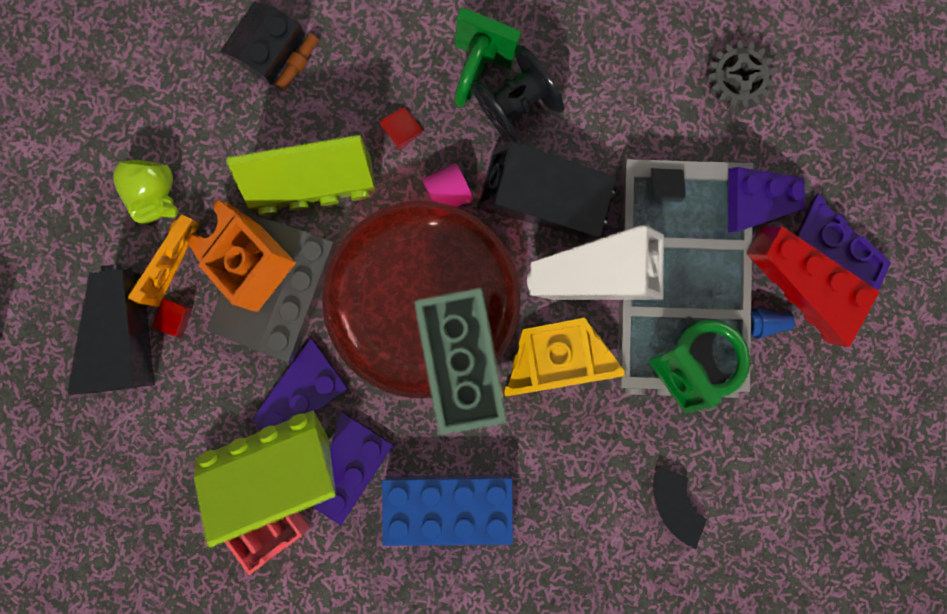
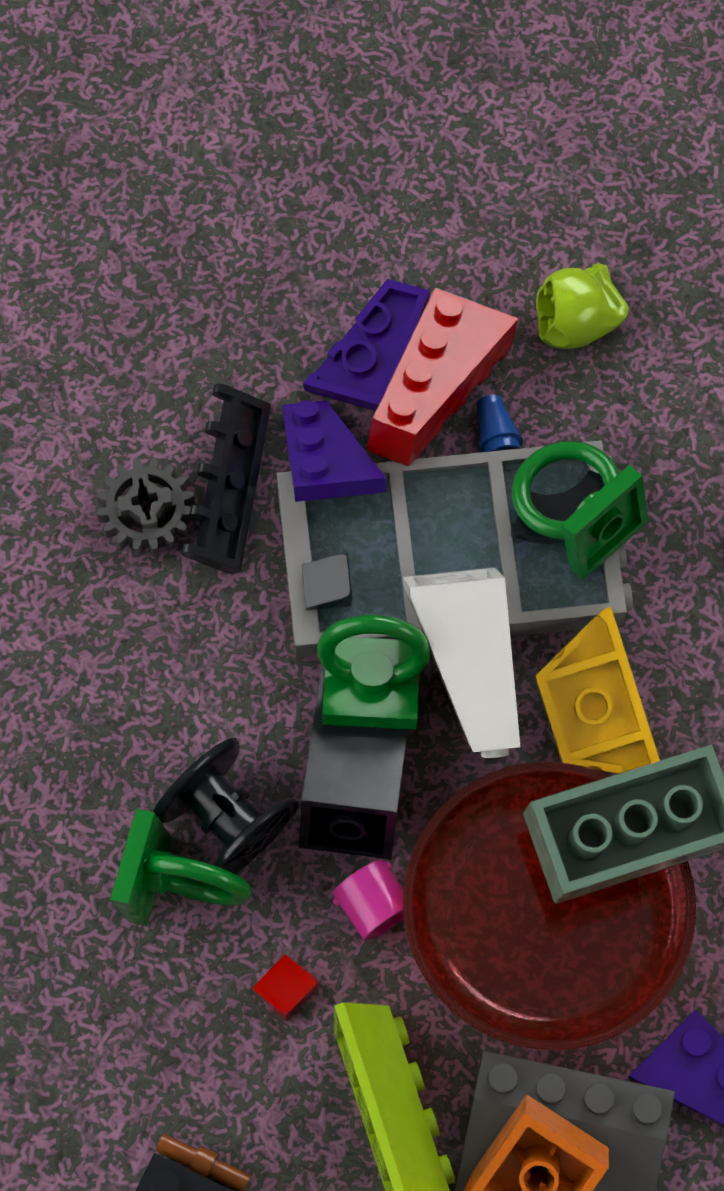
camera: 100 degrees left, 15 degrees down
(594, 200) = (372, 678): none -> green tile
(753, 135) = (230, 480): none -> black hinge
(854, 395) = (578, 307): none -> lime piece

